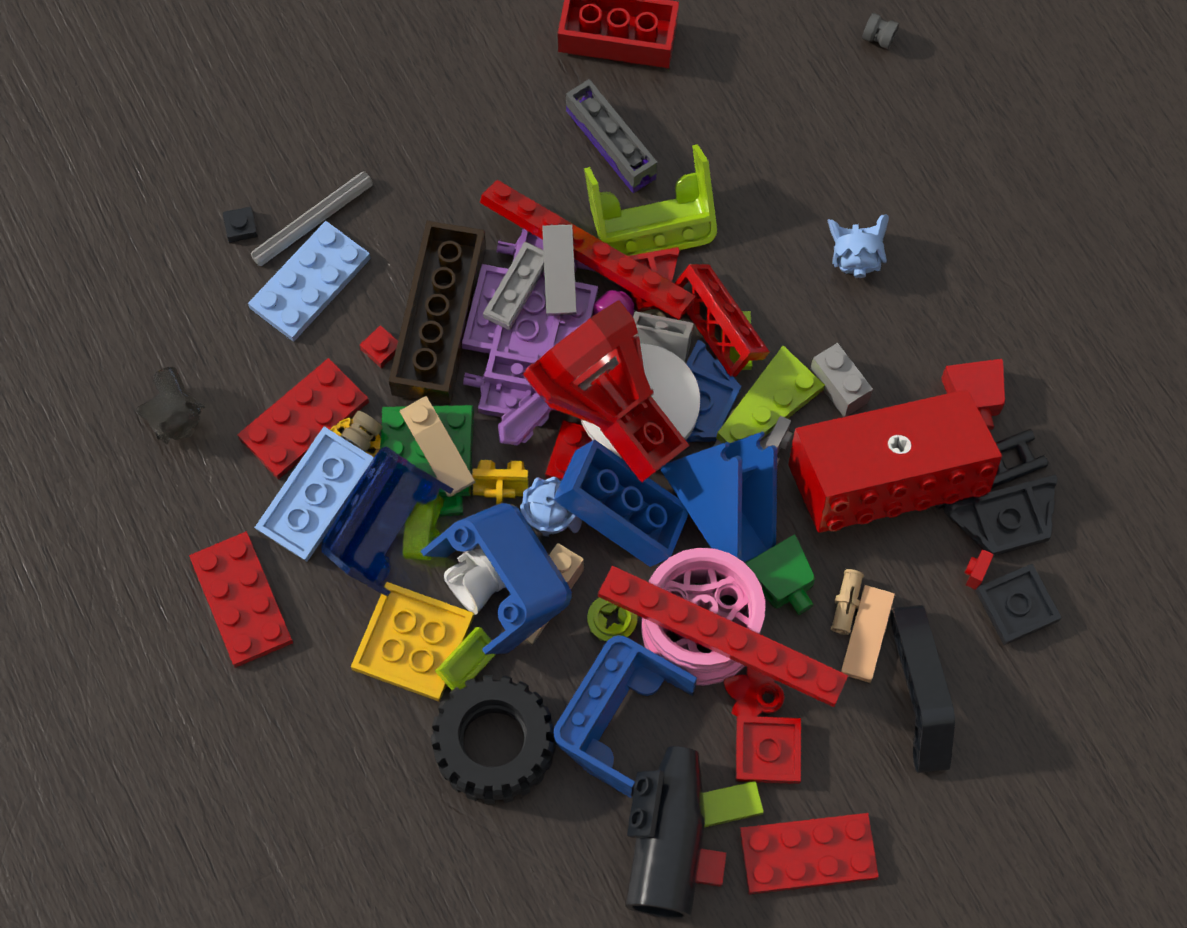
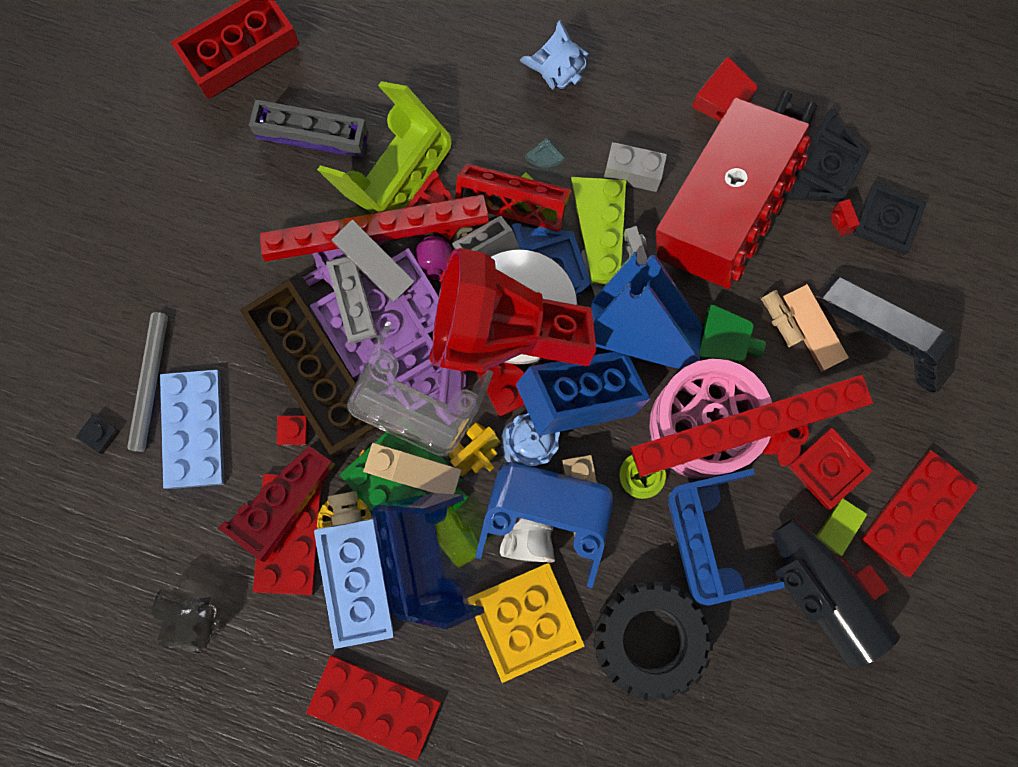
camera: 45 degrees left, 10 degrees up
(304, 388) = (271, 513): none -> dark red wing
(465, 660) = (576, 600): lime tile -> none
(476, 403) = (407, 411): none -> clear windscreen
(779, 312) = (544, 155): none -> clear light blue tile

